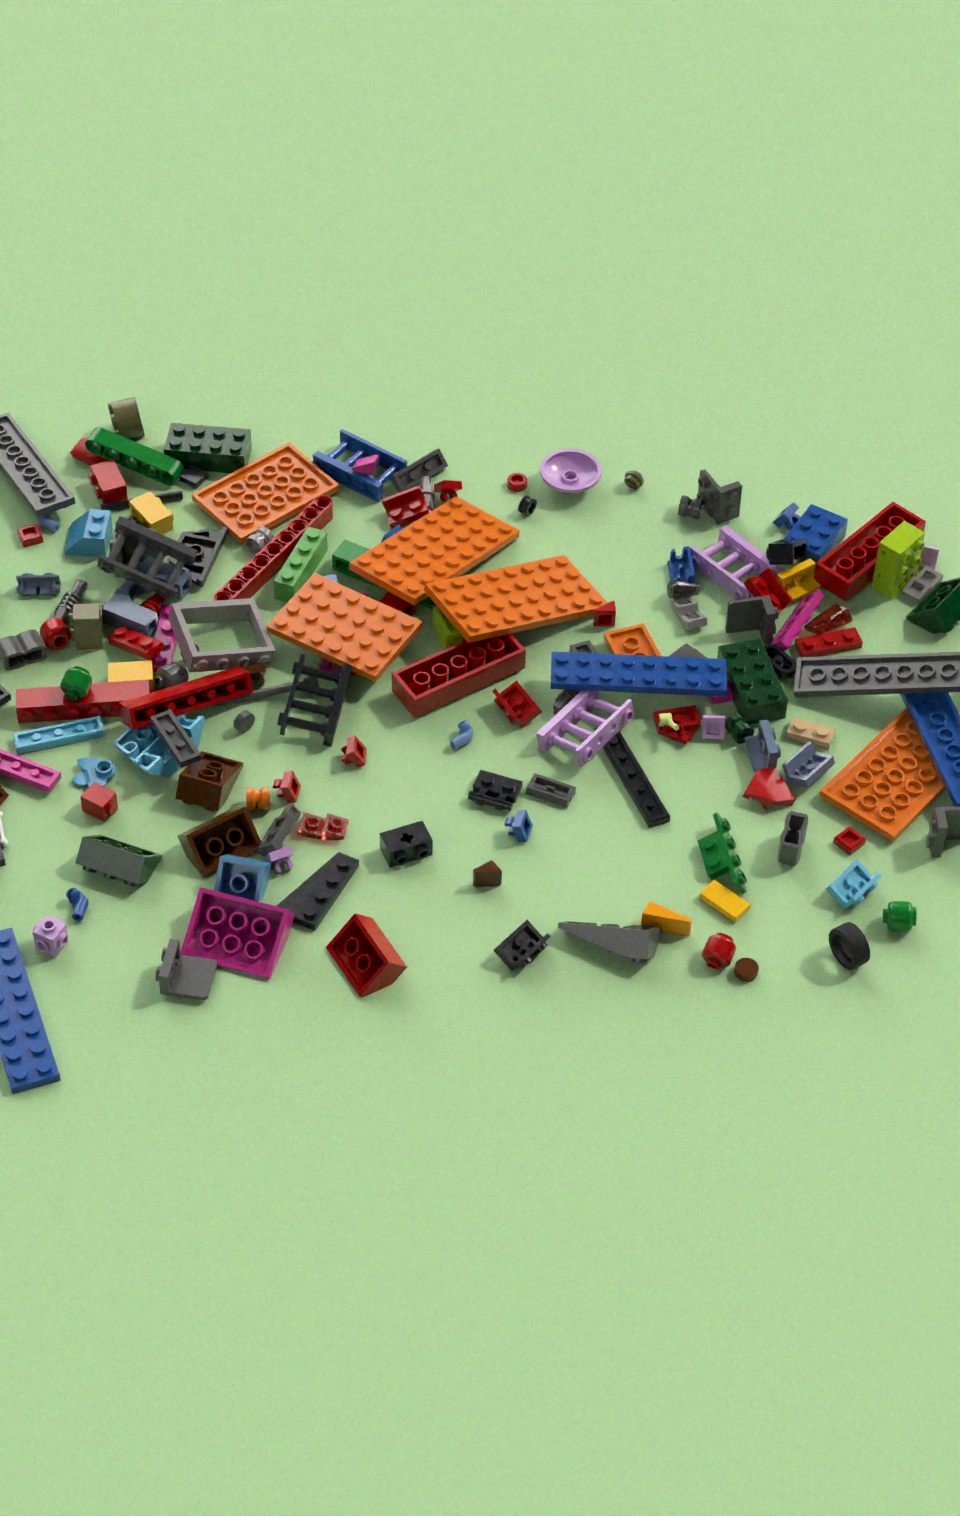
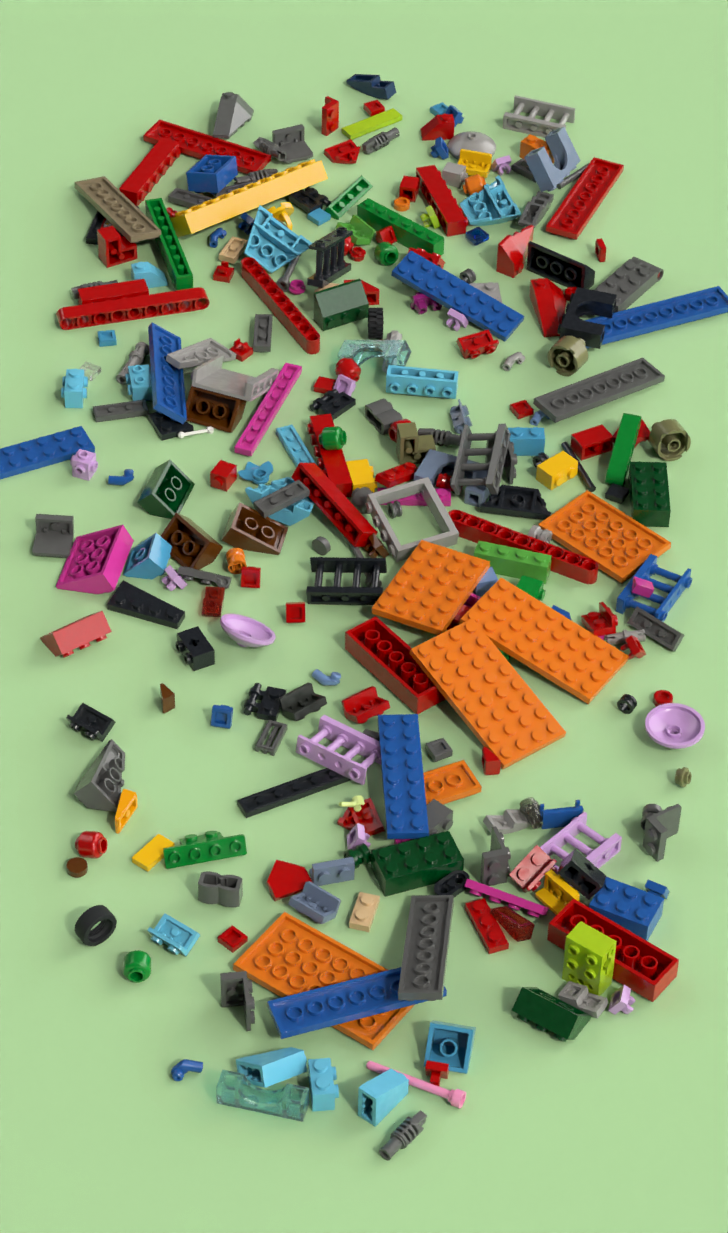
camera: 85 degrees right, 5 degrees down
(389, 791) = (247, 630): none -> lavender dish
(508, 755) = (301, 702): none -> pearl dark grey bracket

